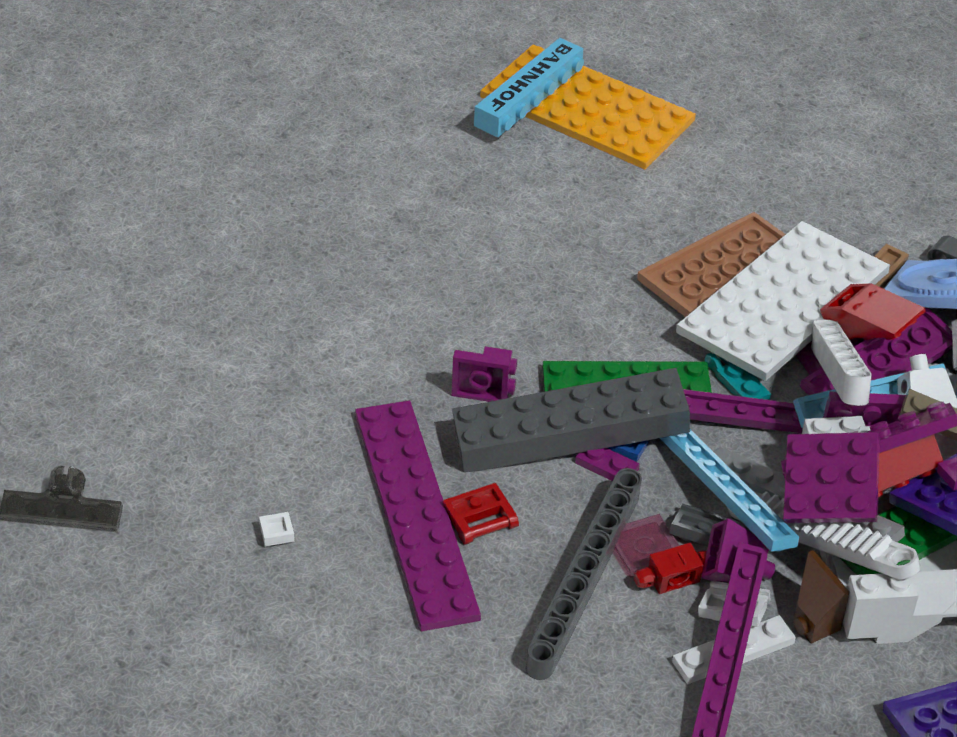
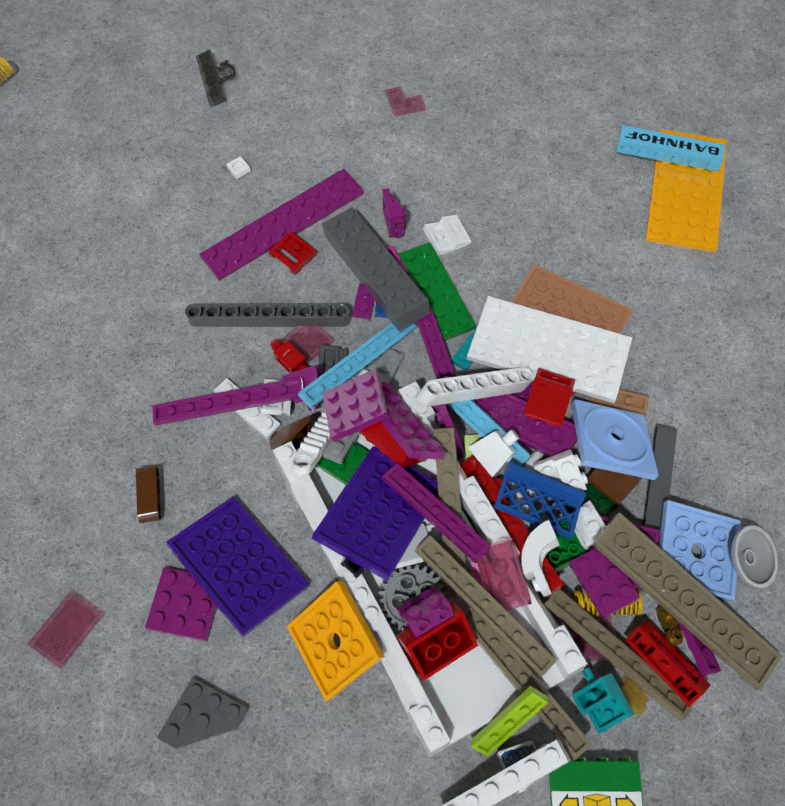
camera: 70 degrees right, 20 degrees up
(271, 314) = (402, 105): none -> clear pink tile
(537, 341) = (447, 235): none -> white slope

